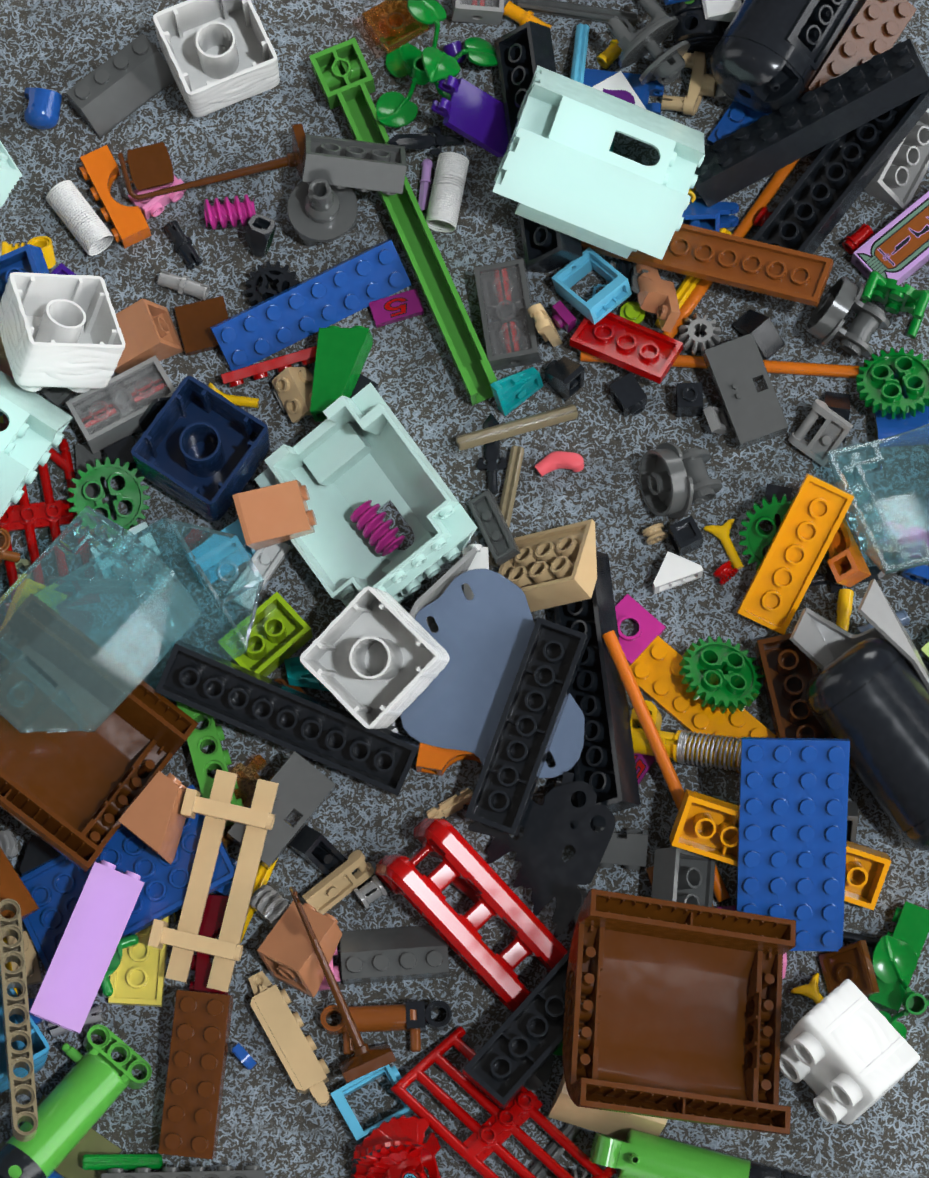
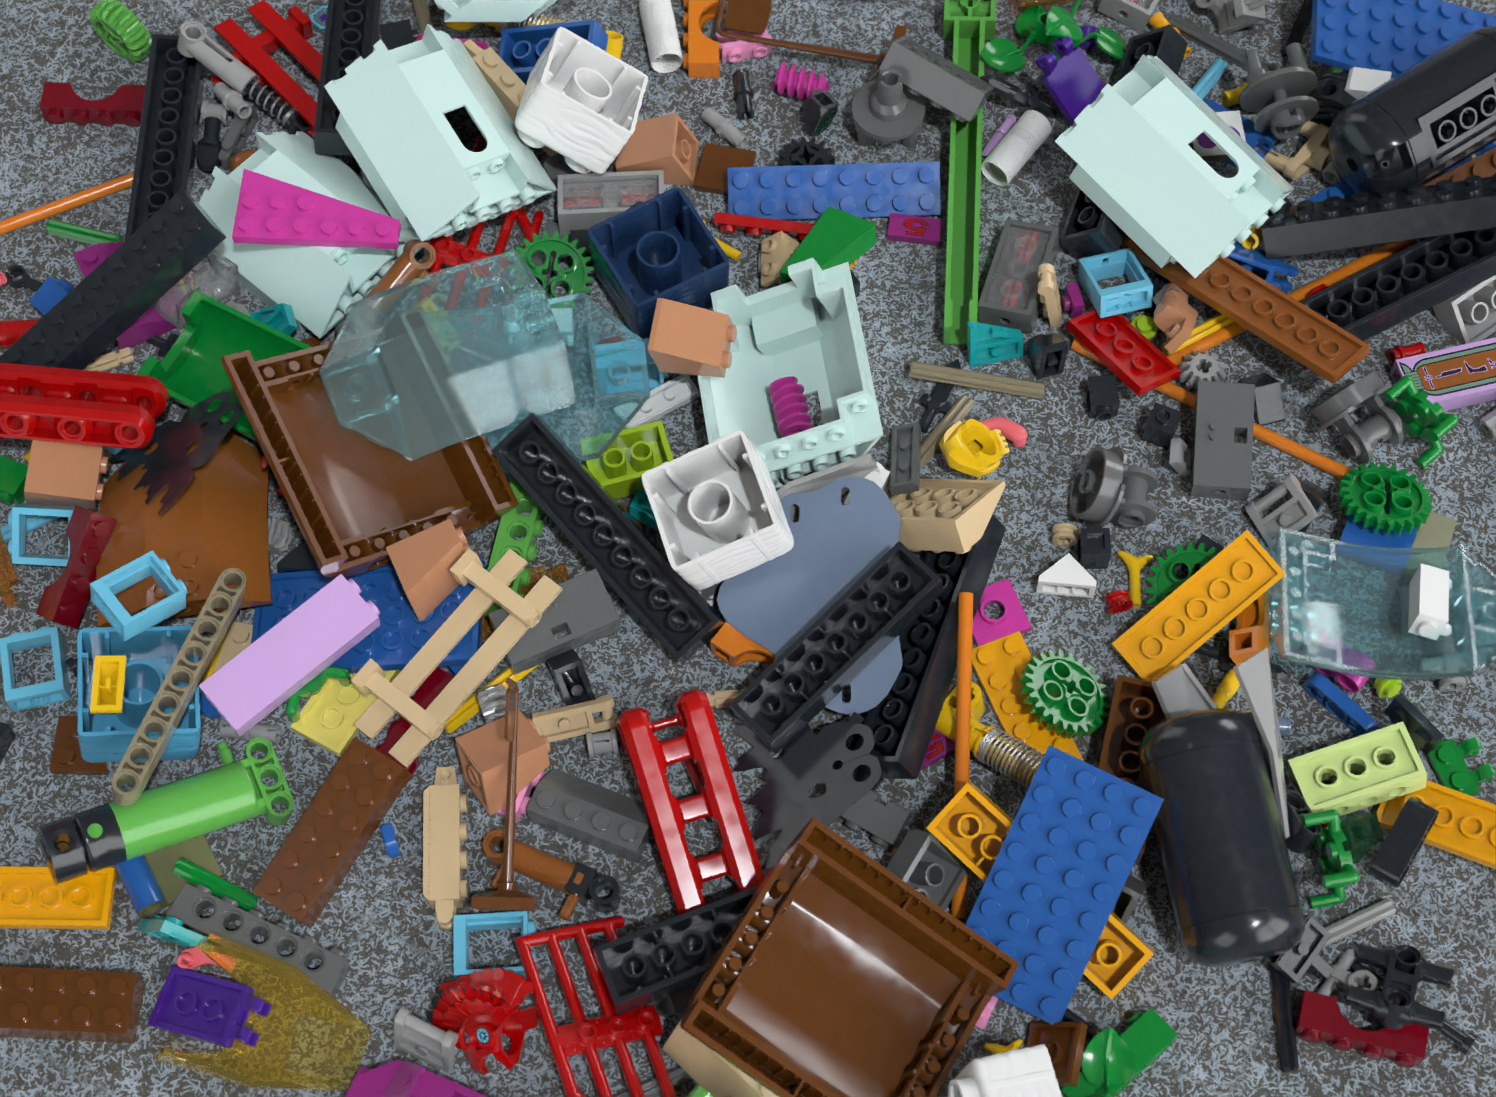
camera: 25 degrees right, 10 degrees down
(545, 493) = (969, 455): none -> yellow helmet

